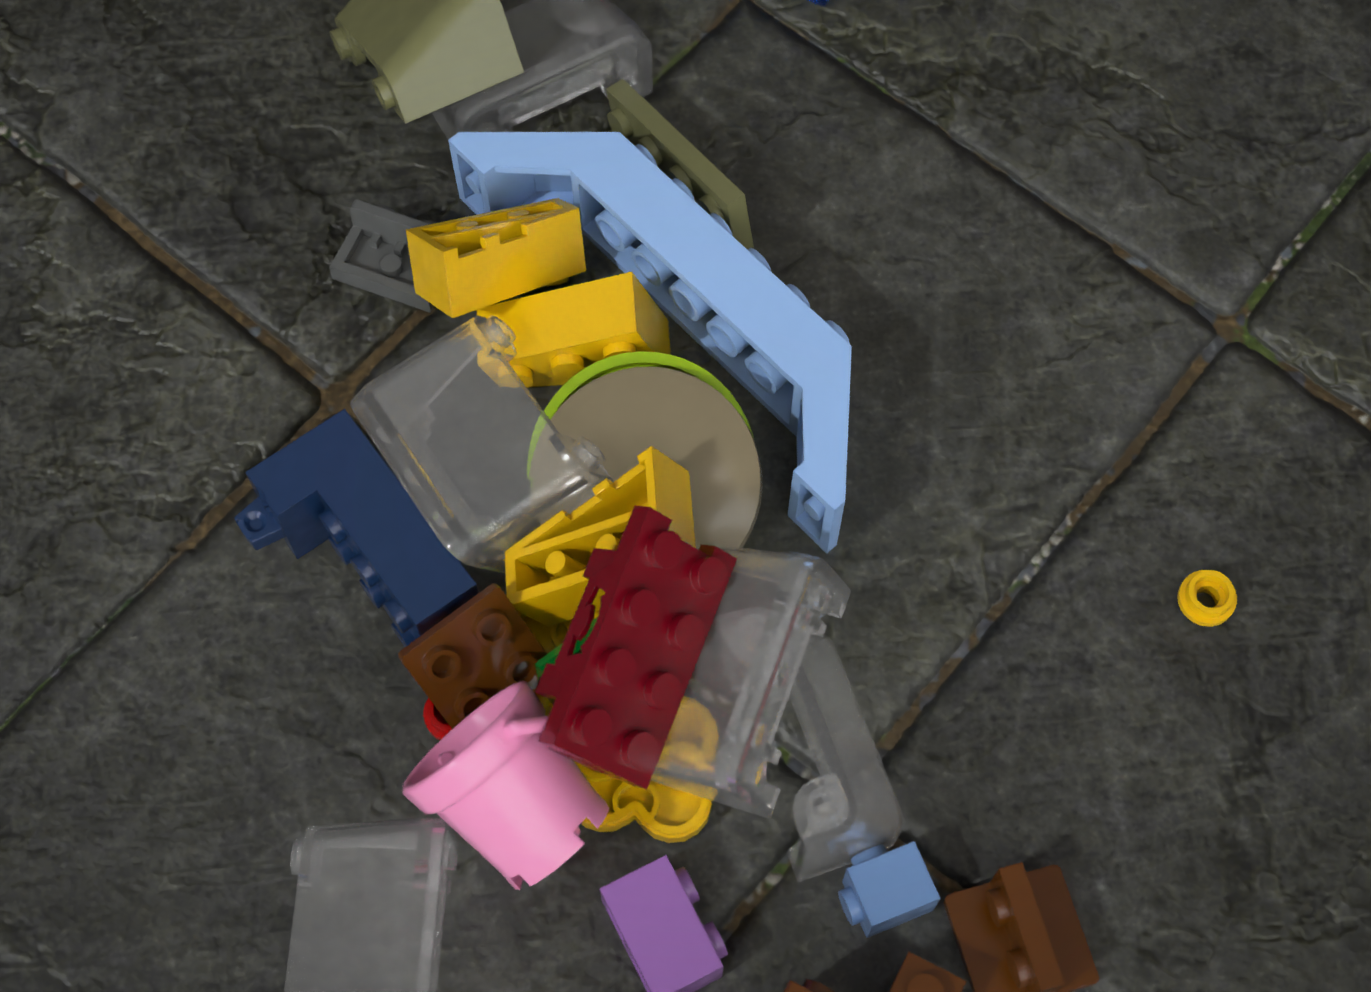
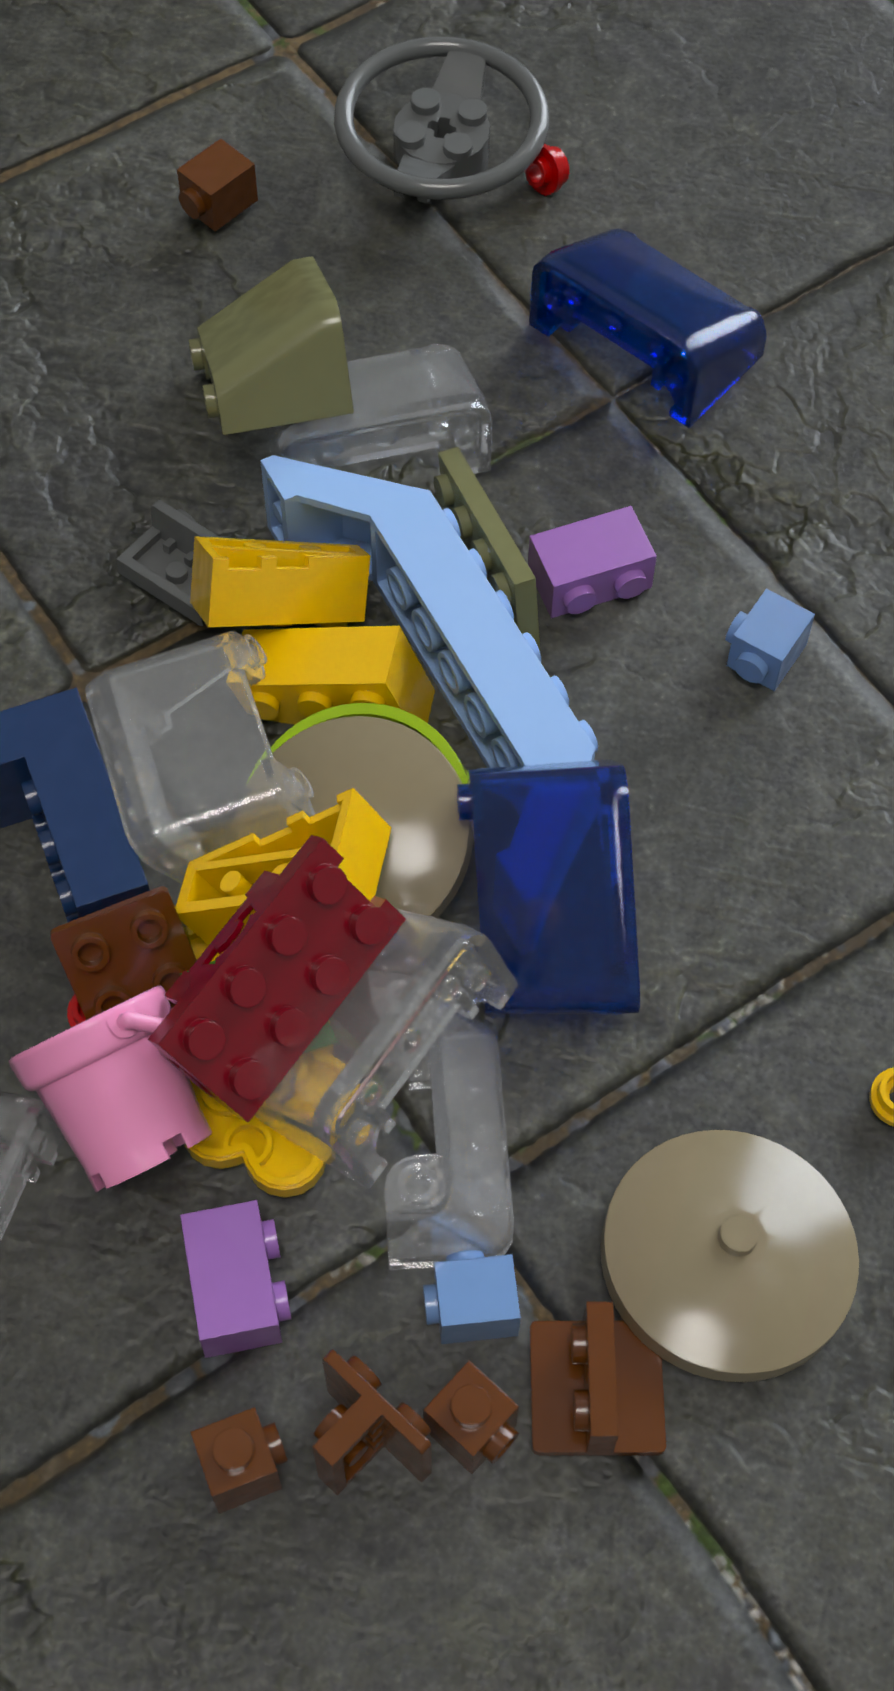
camera: 15 degrees right, 5 degrees down
(781, 159) = (591, 562): none -> medium lavender brick
(858, 479) = (557, 883): none -> clear blue windscreen
(962, 196) = (768, 639): none -> medium blue brick
(1101, 786) = (729, 1255): none -> dark tan dish

